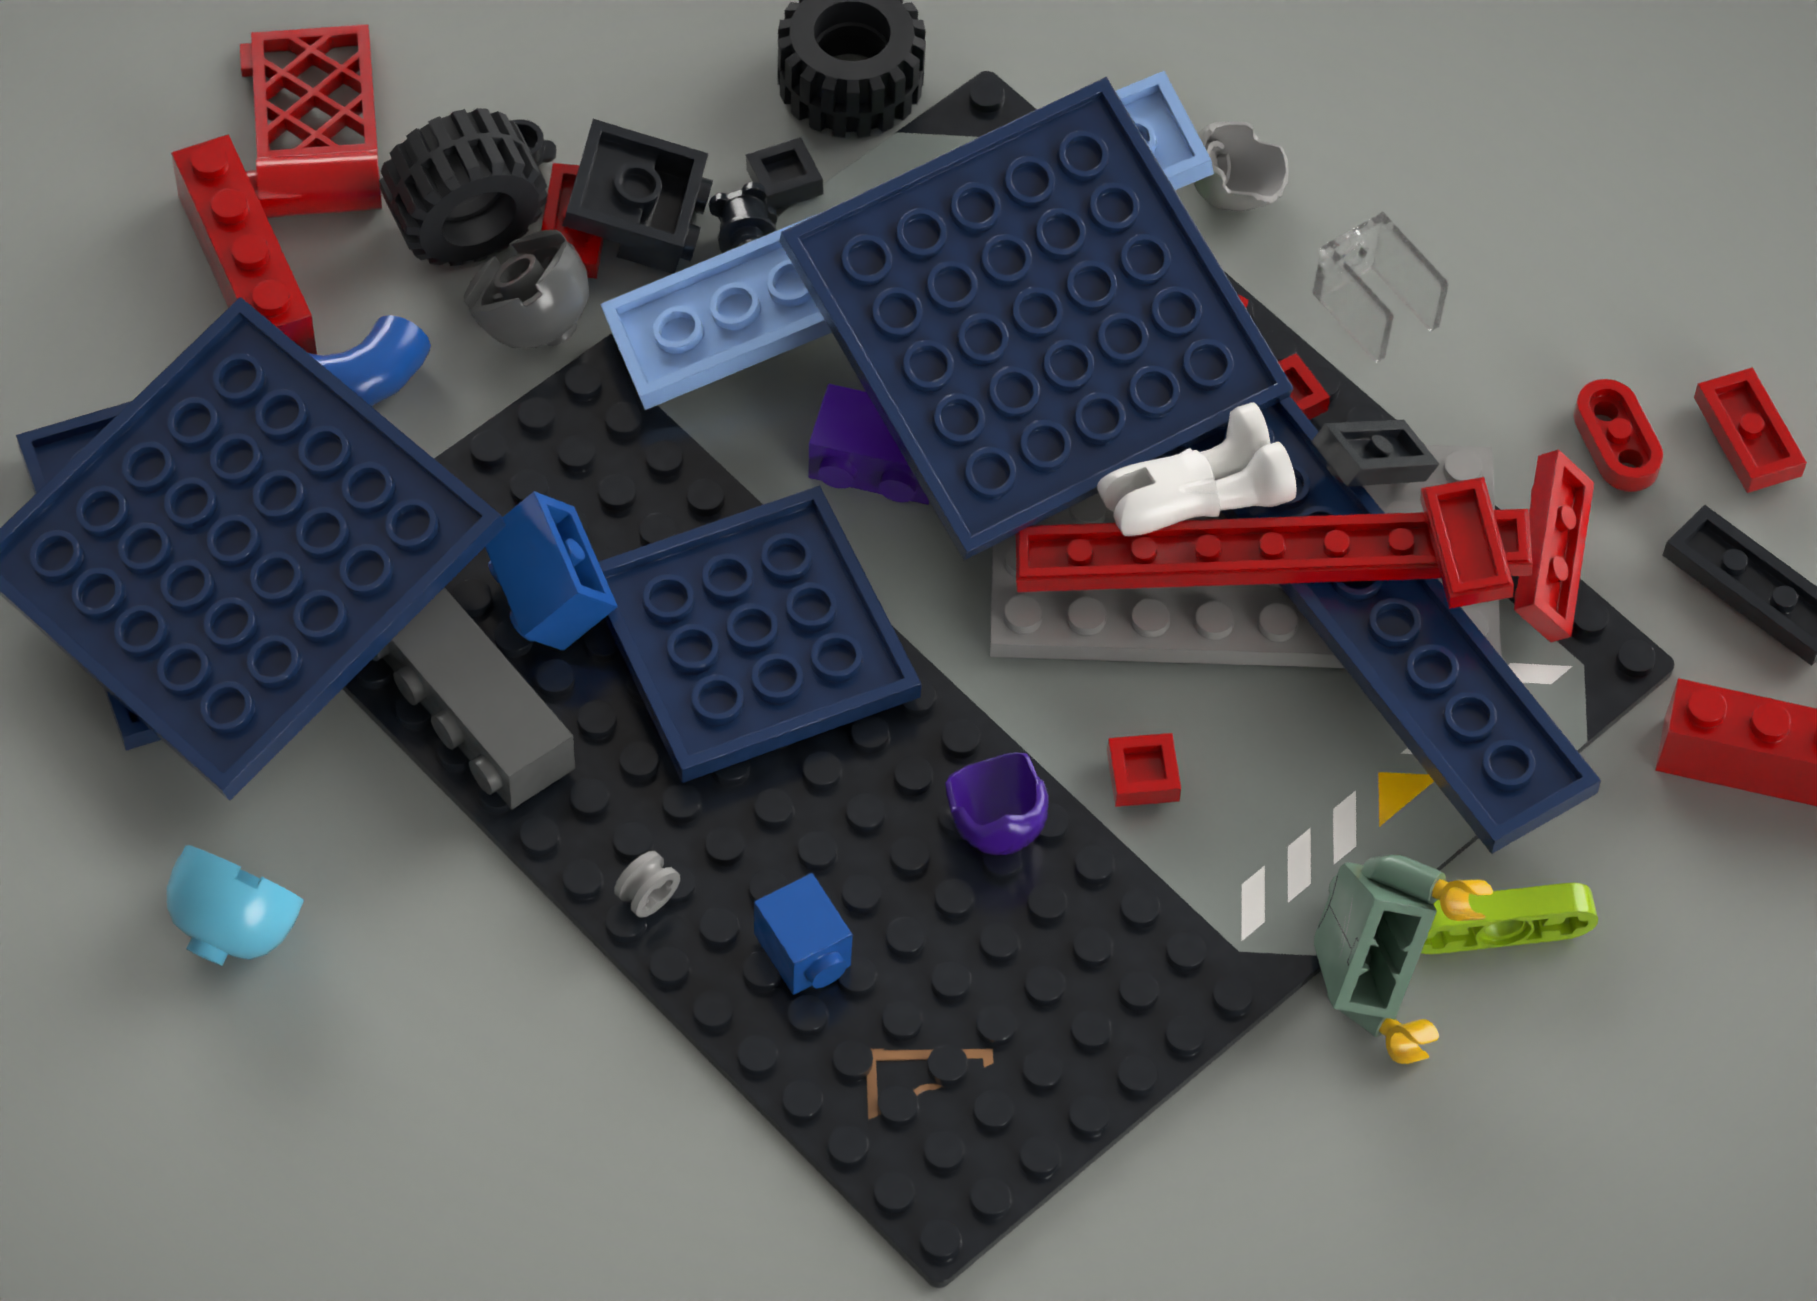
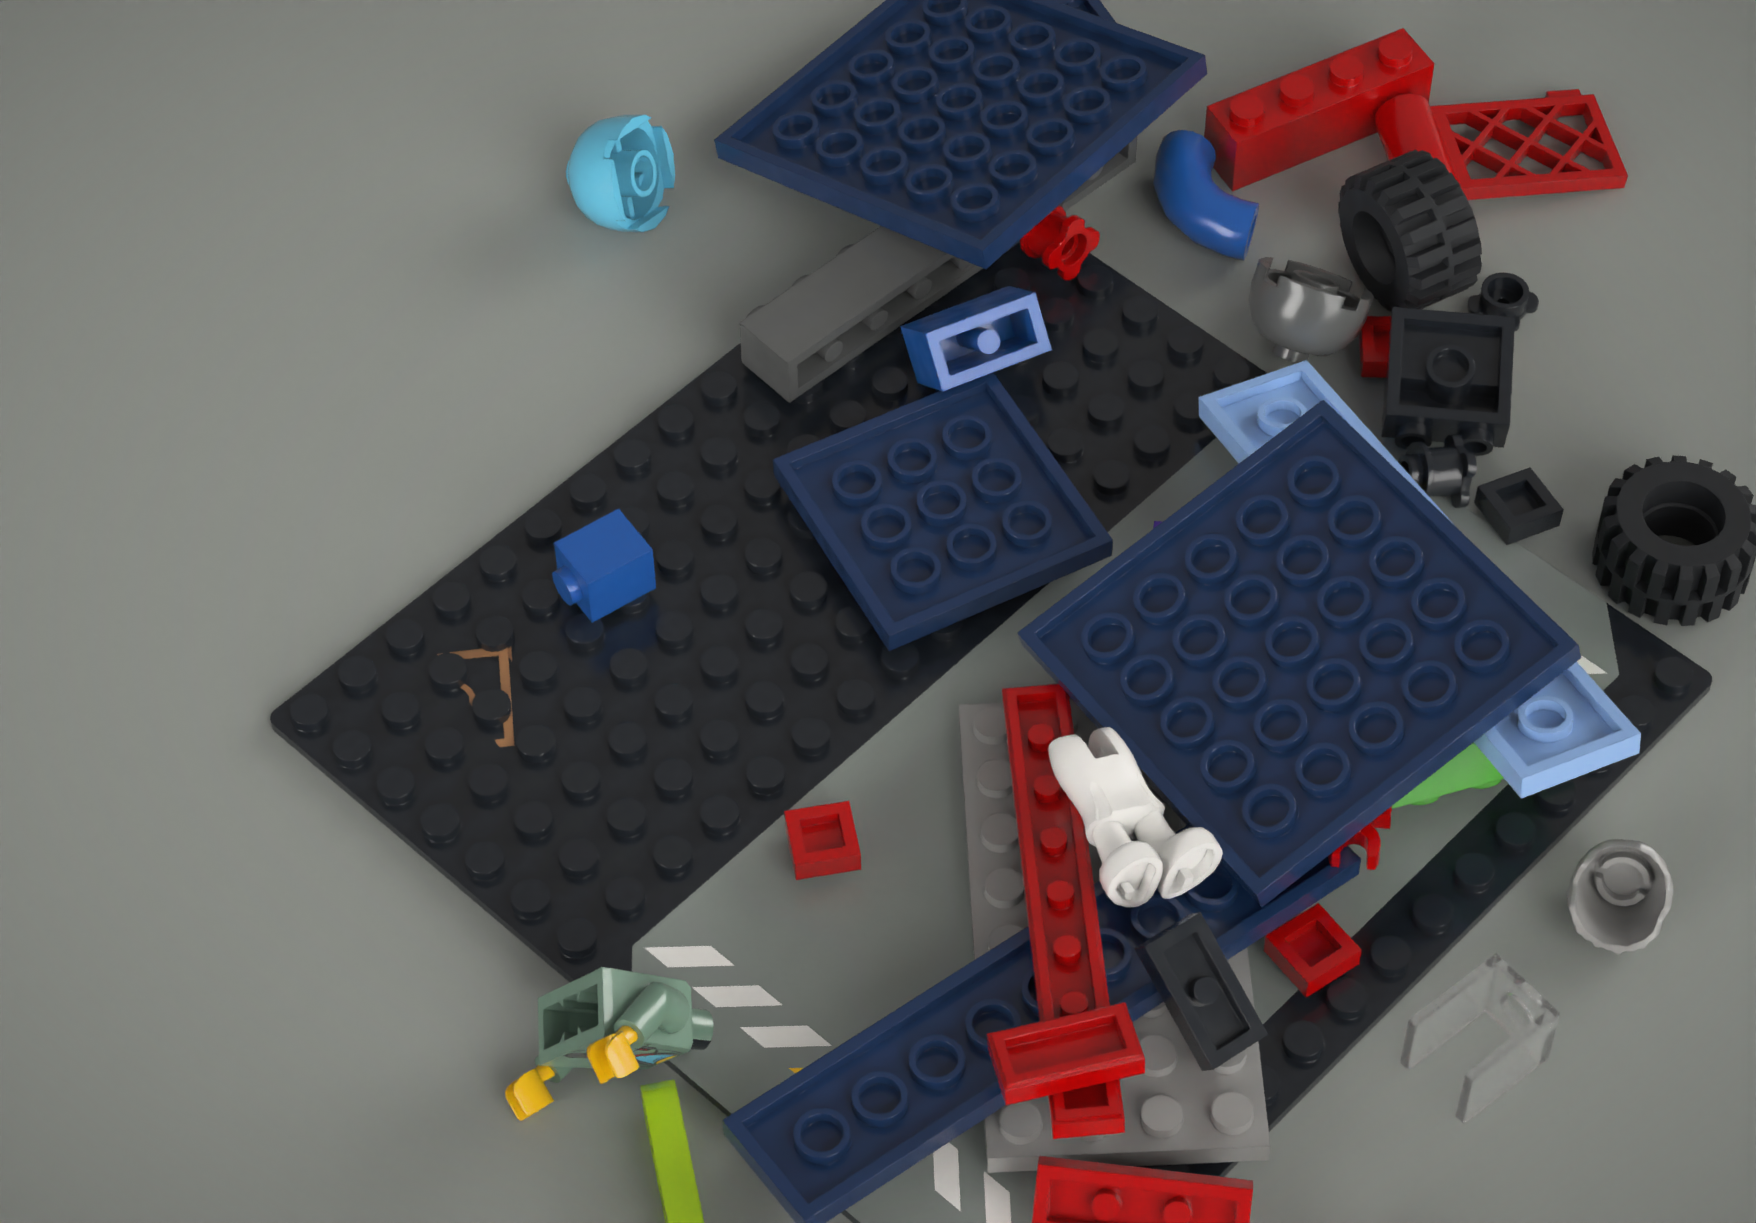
camera: 90 degrees right, 5 degrees down
(647, 884) = (653, 449): light grey bush -> none
(998, 803) = (755, 705): dark purple hair -> none

